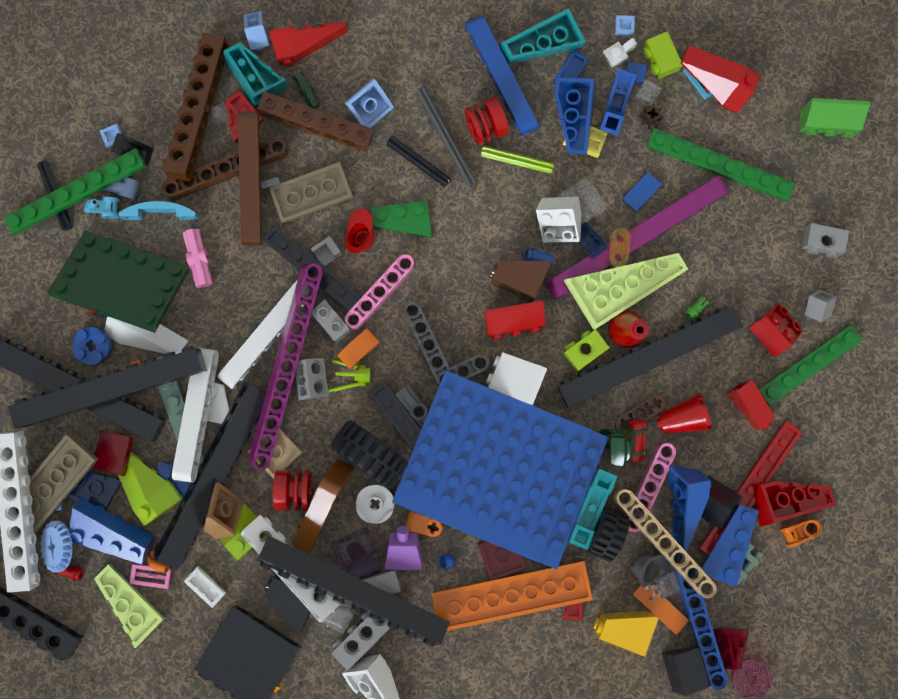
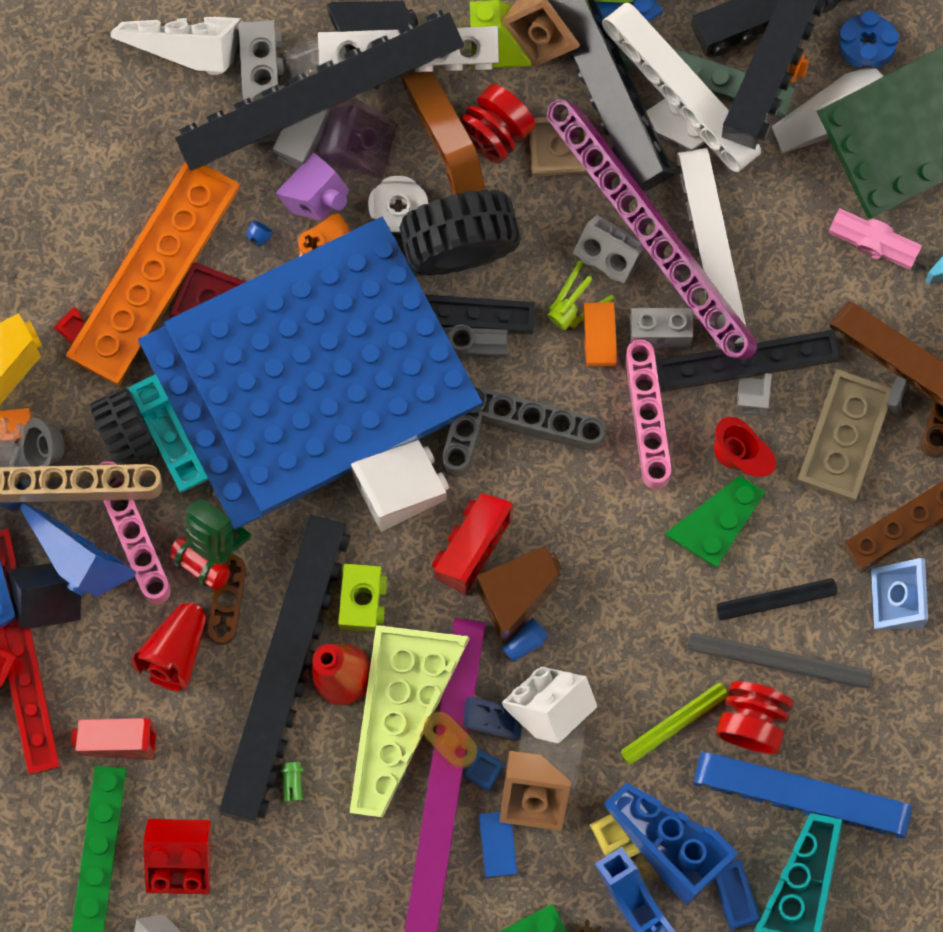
camera: 130 degrees right, 10 degrees down
(608, 192) = (534, 792): none -> medium nougat slope
(612, 224) = (484, 770): none -> blue tile

